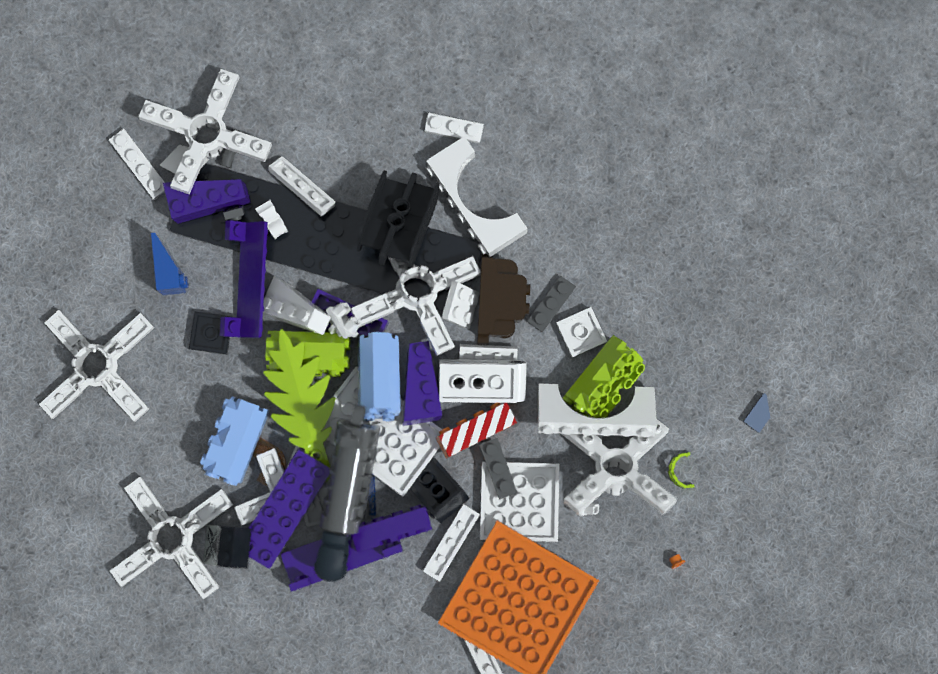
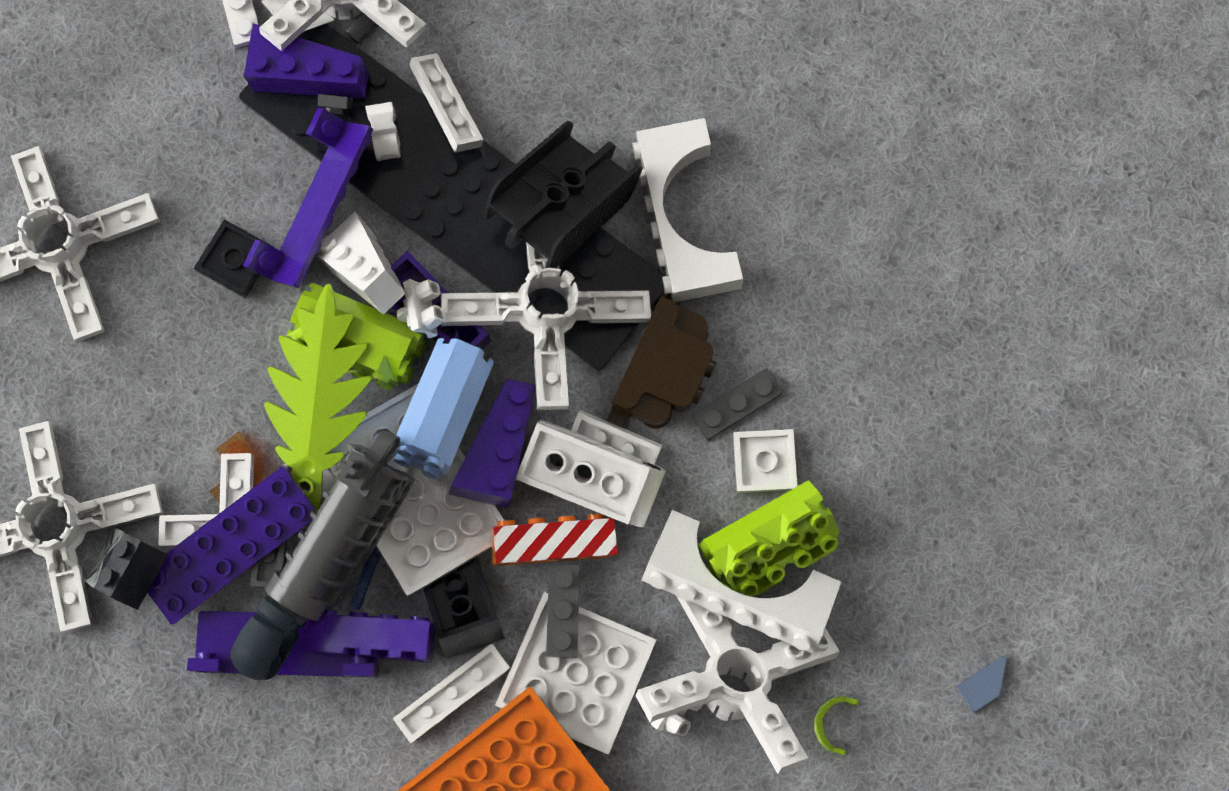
camera: 30 degrees right, 5 degrees down
(168, 274) = (207, 148): blue slope -> none
(235, 440) = (200, 423): light blue brick -> none
(453, 127) = (695, 103): white plate -> none
(460, 305) = (603, 353): white plate -> none

